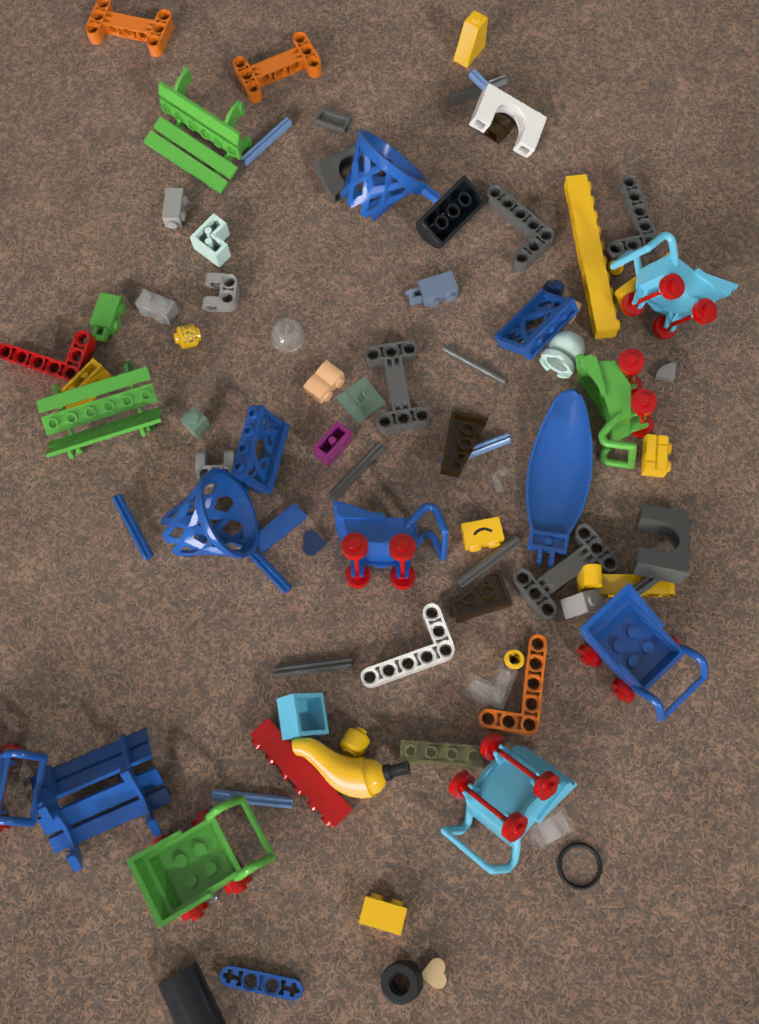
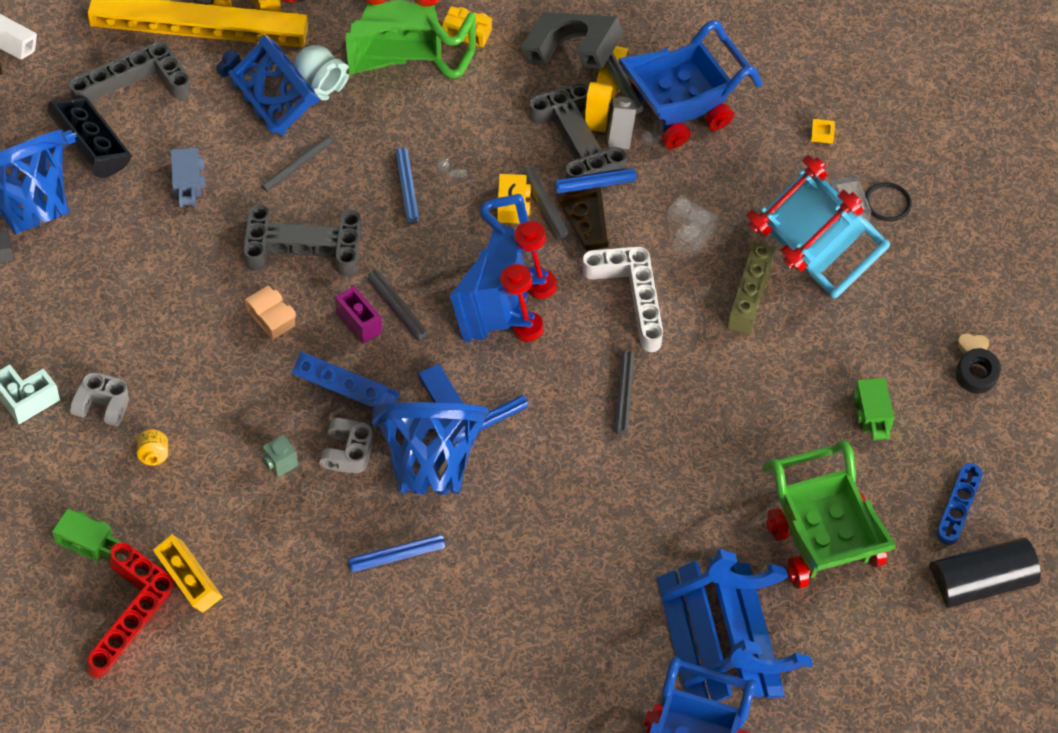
camera: 85 degrees left, 15 degrees down
(99, 409) = (277, 505): bright green piece -> none
(157, 307) = (97, 474): light grey brick -> none
(254, 798) = (761, 481): medium blue axle -> none
(287, 334) = (188, 339): clear cylinder -> none
(301, 773) = (743, 423): red brick -> none
(302, 715) = (684, 402): medium azure piece -> none
(313, 543) = (474, 366): dark blue tile -> none
(340, 887) = (874, 407): none -> bright green brick
(348, 775) = (758, 371): yellow animal -> none
(354, 742) = (722, 366): yellow head -> none
(361, 400) = (304, 284): sand green piece -> none
(383, 914) = (908, 375): yellow brick -> none
(461, 439) = (390, 190): dark brown wing -> none
(515, 655) = (665, 197): yellow cone -> none
(518, 596) = (595, 181): none -> blue axle
(527, 694) = (719, 200): orange beam -> none
(559, 475) = (466, 112): blue windscreen -> none
(640, 790) = (822, 131): none -> yellow plate

